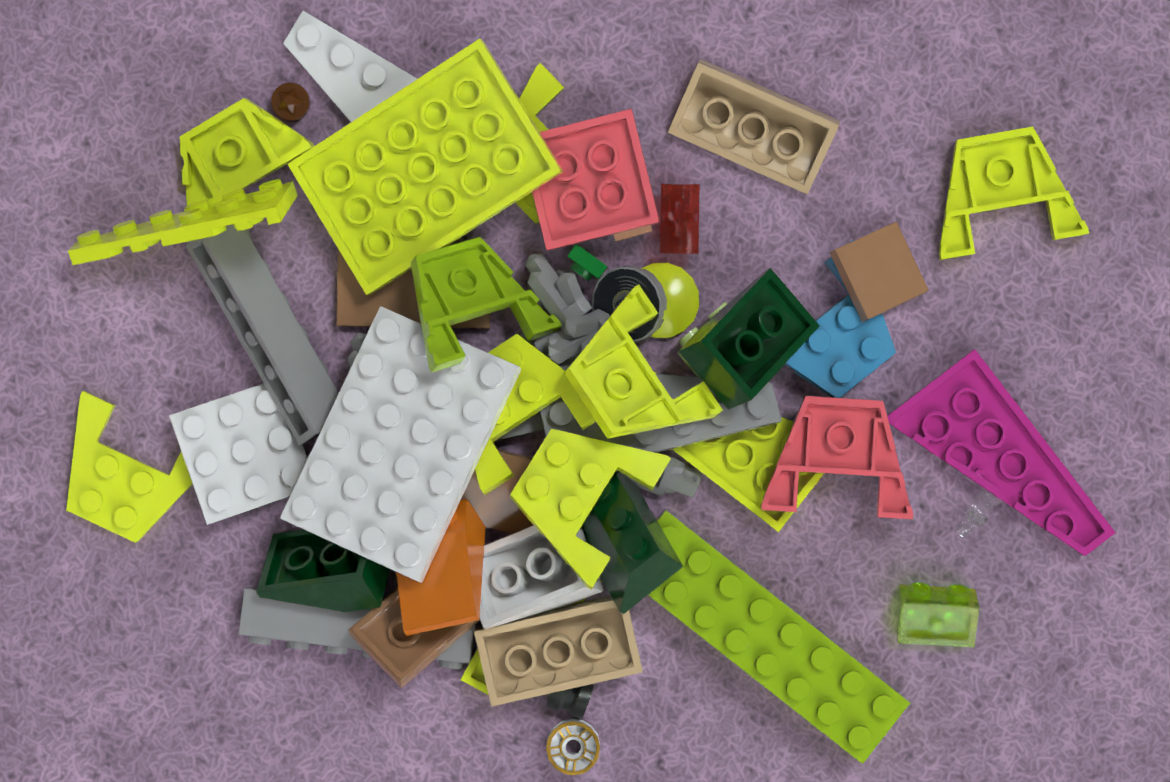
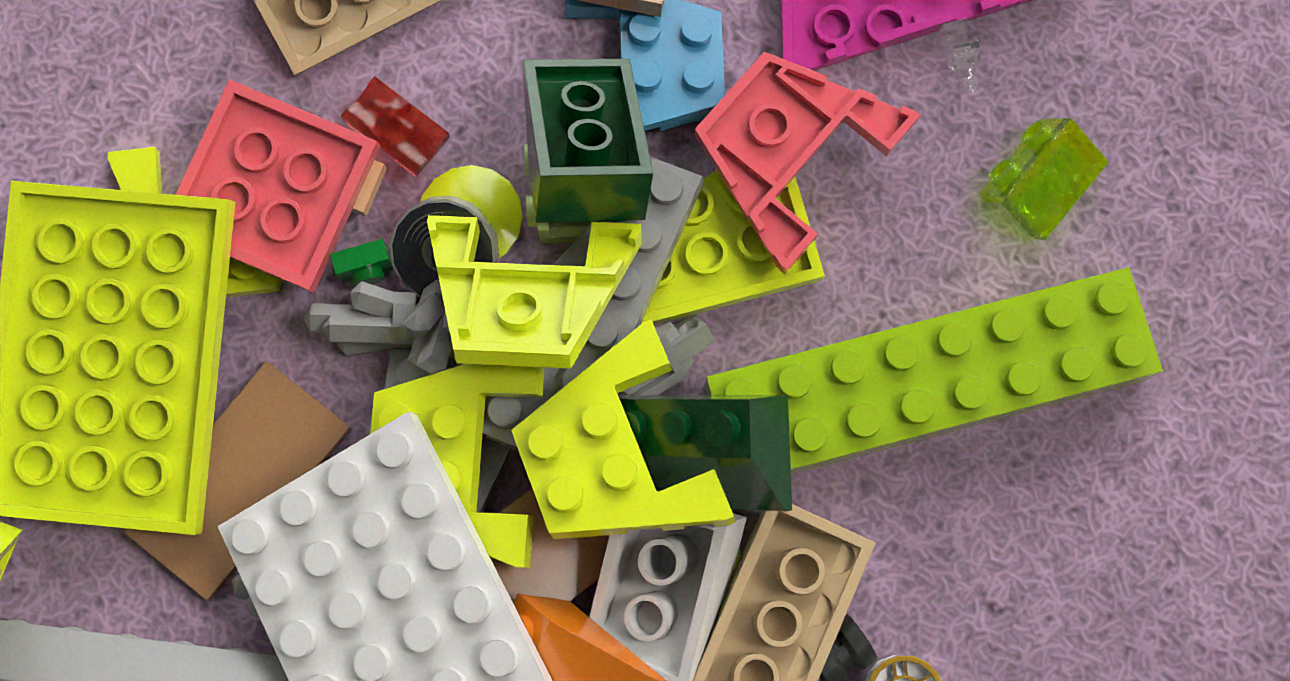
camera: 60 degrees left, 10 degrees down
(466, 284) = (275, 405): lime wing -> none

